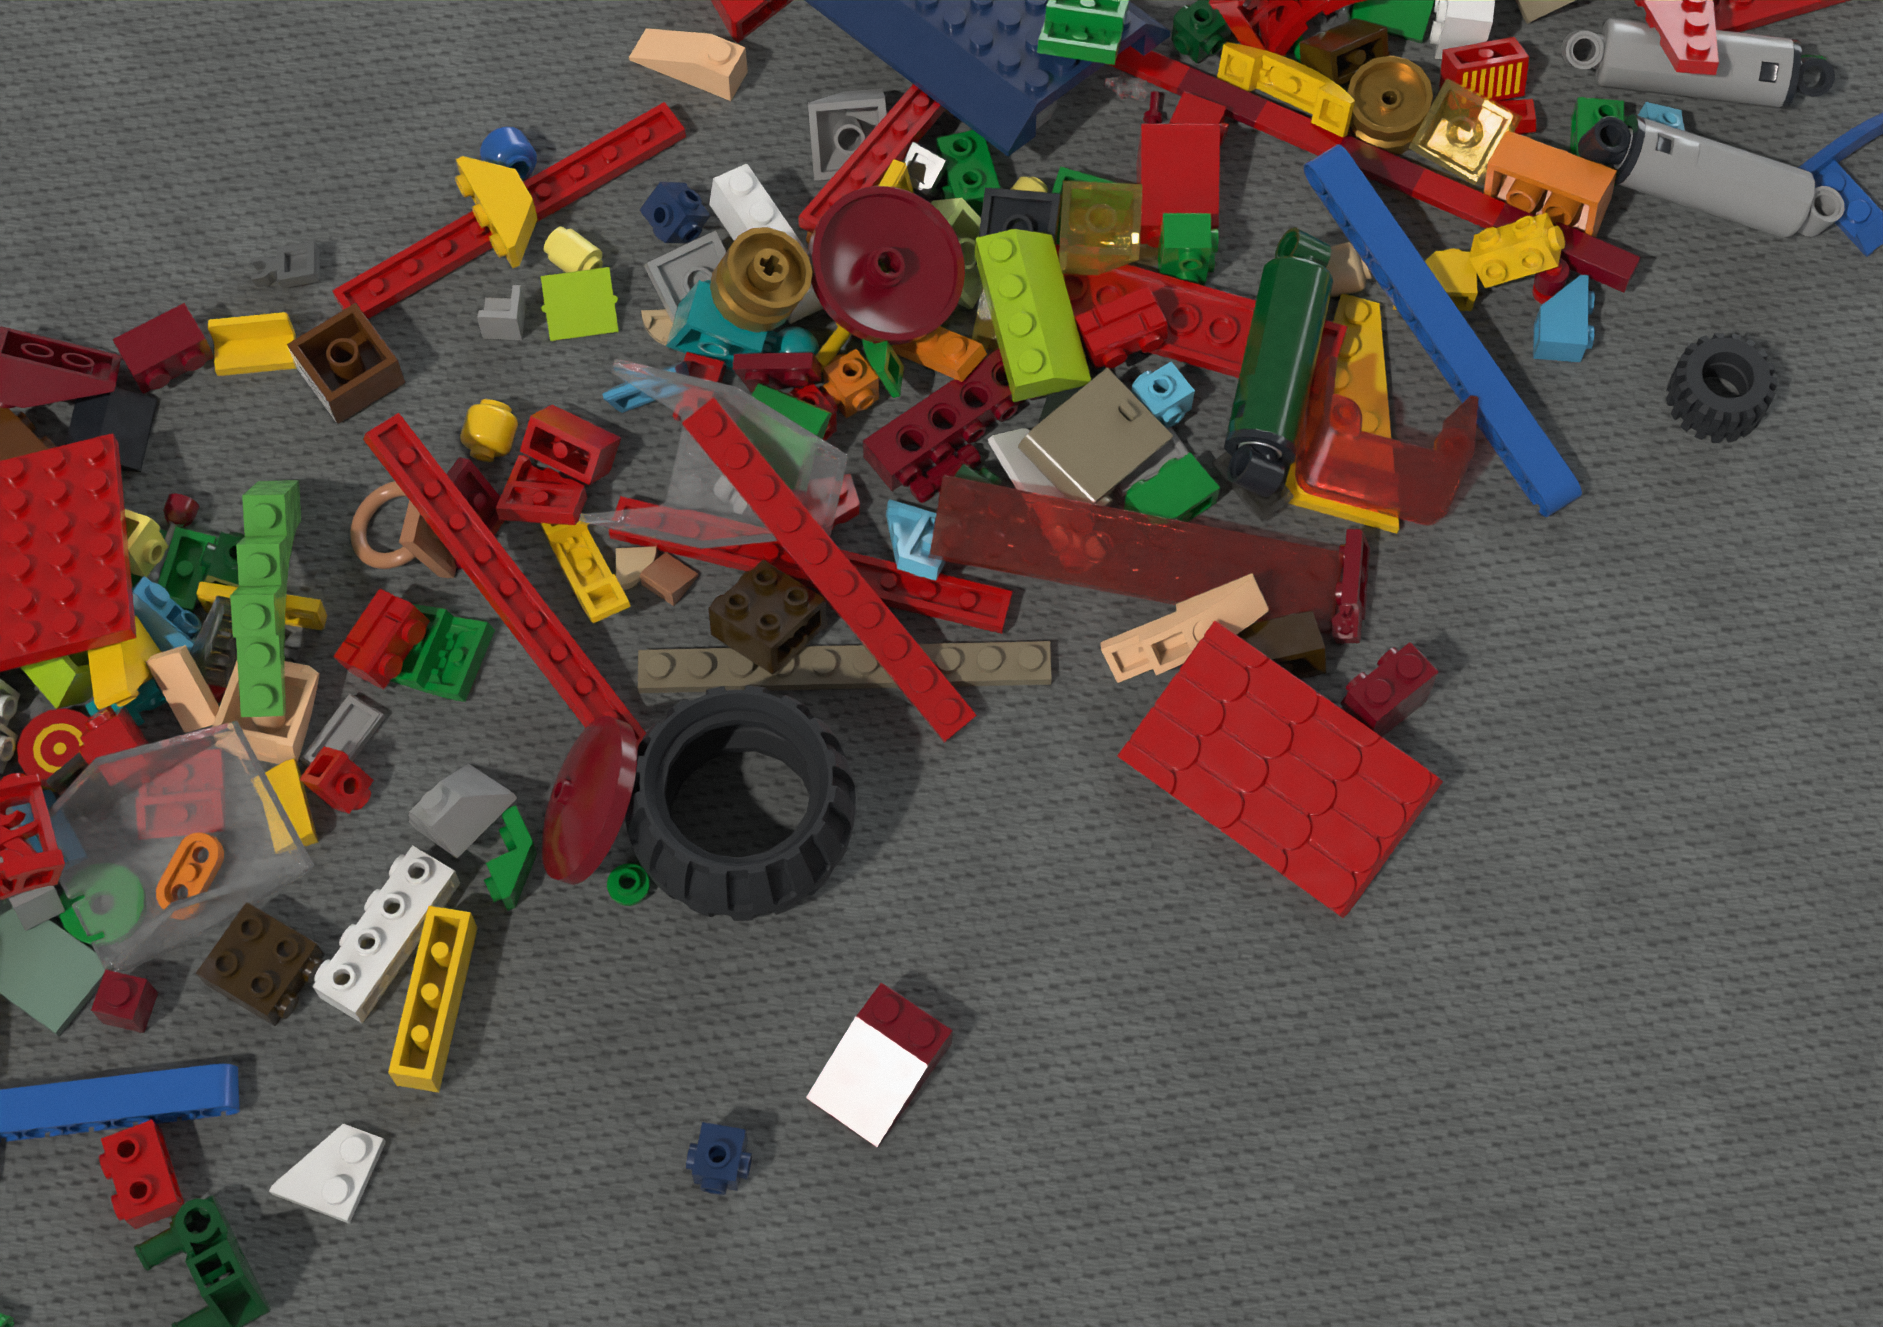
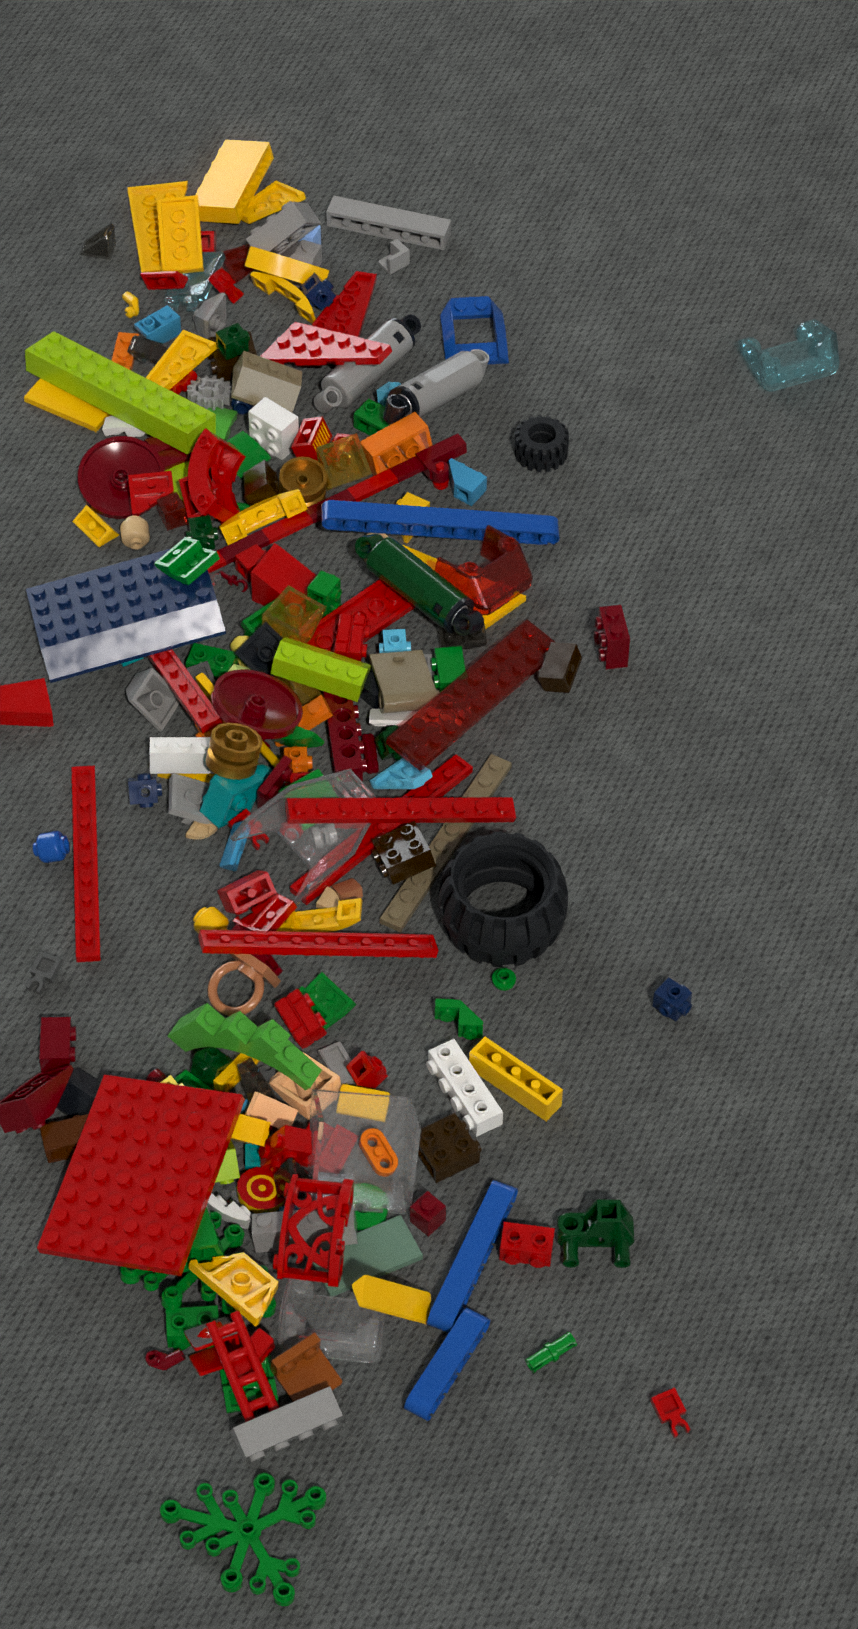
camera: 60 degrees left, 15 degrees down
(252, 343) = (82, 1005): yellow panel -> none
(333, 1173) = (576, 1167): white wing -> none
(346, 363) = (127, 966): reddish brown brick -> none
(460, 809) = (419, 1026): light grey slope -> none
(500, 204) = (86, 856): yellow slope -> none
(503, 316) = (147, 890): light grey panel -> none
(572, 251) = (132, 845): light yellow brick -> none
(579, 304) = (163, 856): lime piece -> none
(589, 800) = (460, 957): dark red dish -> none
(694, 59) = (56, 742): light nougat slope -> none
(880, 1064) = (664, 917): slope -> none
(1172, 638) = (530, 697): light nougat slope -> none
(1280, 769) = (620, 694): red piece -> none
(1352, 591) = (545, 625): dark red hinge -> none
(1516, 249) = (422, 473): yellow brick -> none

